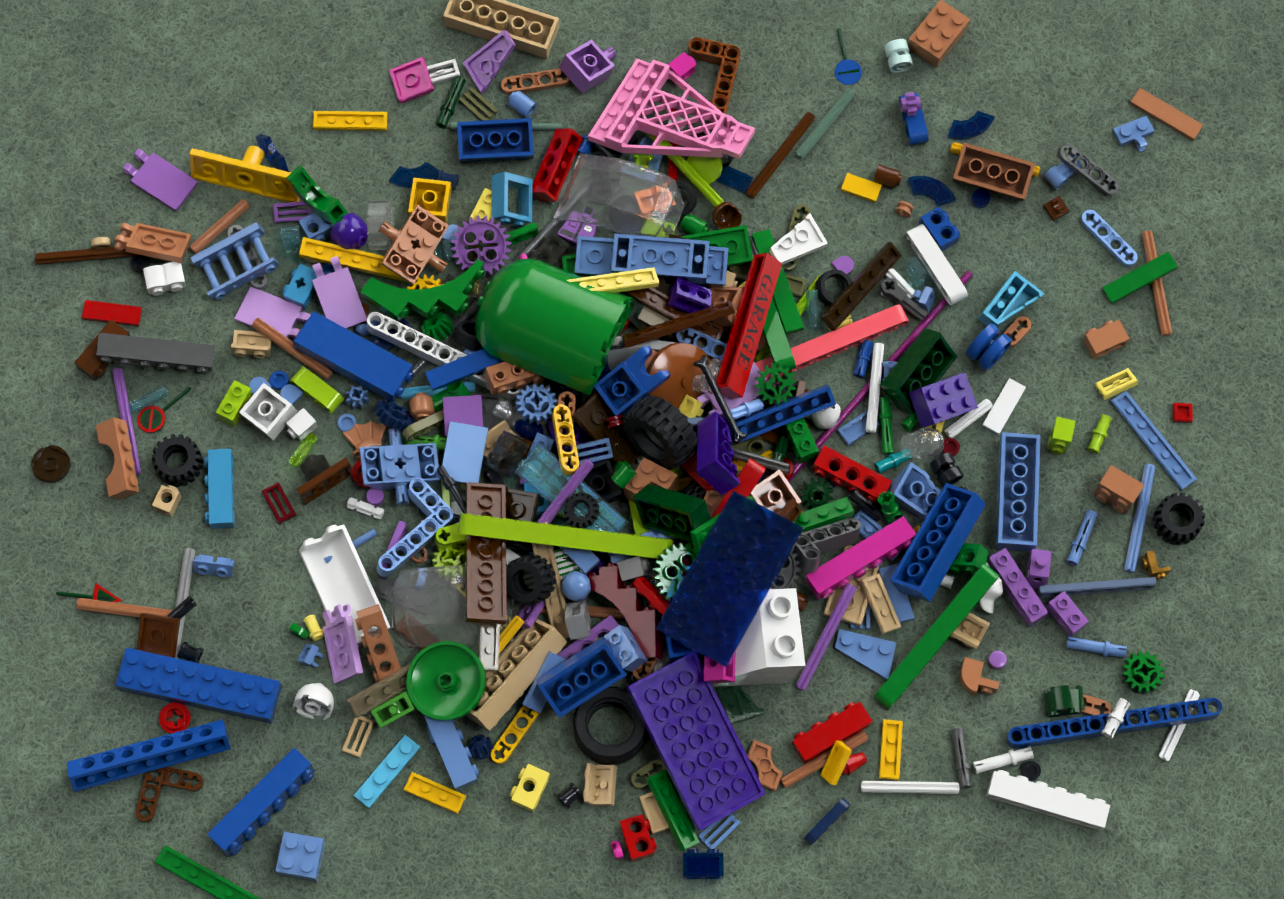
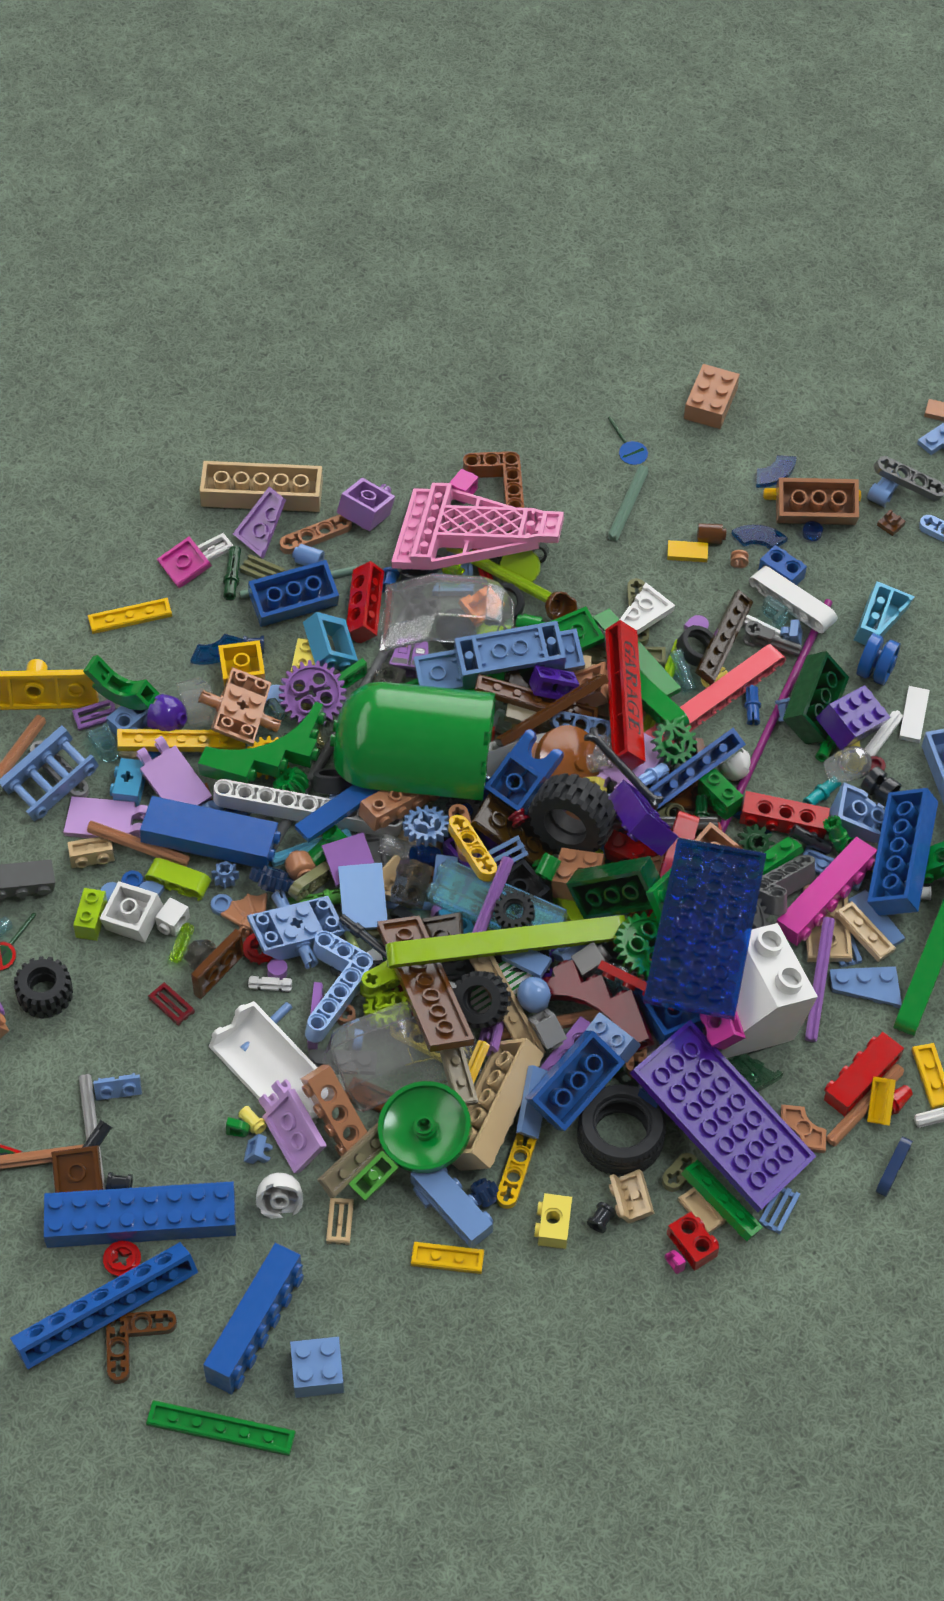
camera: 15 degrees left, 15 degrees down
(167, 508) = (47, 1039): tan brick -> none
(220, 488) = (101, 1003): dark azure brick -> none
(271, 154) = (52, 660): clear blue tile -> none
(387, 771) = (385, 1250): medium azure plate -> none
(621, 281) = (480, 678): light yellow tile -> none
(703, 865) = (776, 1249): clear blue brick -> none
(735, 179) = (555, 574): clear blue tile -> none
(780, 155) = (593, 541): reddish brown axle -> none
(854, 429) = (771, 771): medium blue tile -> none
(874, 392) = (776, 728): white axle -> none
(885, 423) = (797, 754): green pin -> none
(898, 55) = (679, 424): light aqua wheel -> none
(910, 104) = (710, 459): medium lavender gear -> none
(915, 126) = (717, 476): blue beam -> none
(1019, 334) = (905, 640): nougat beam -> none

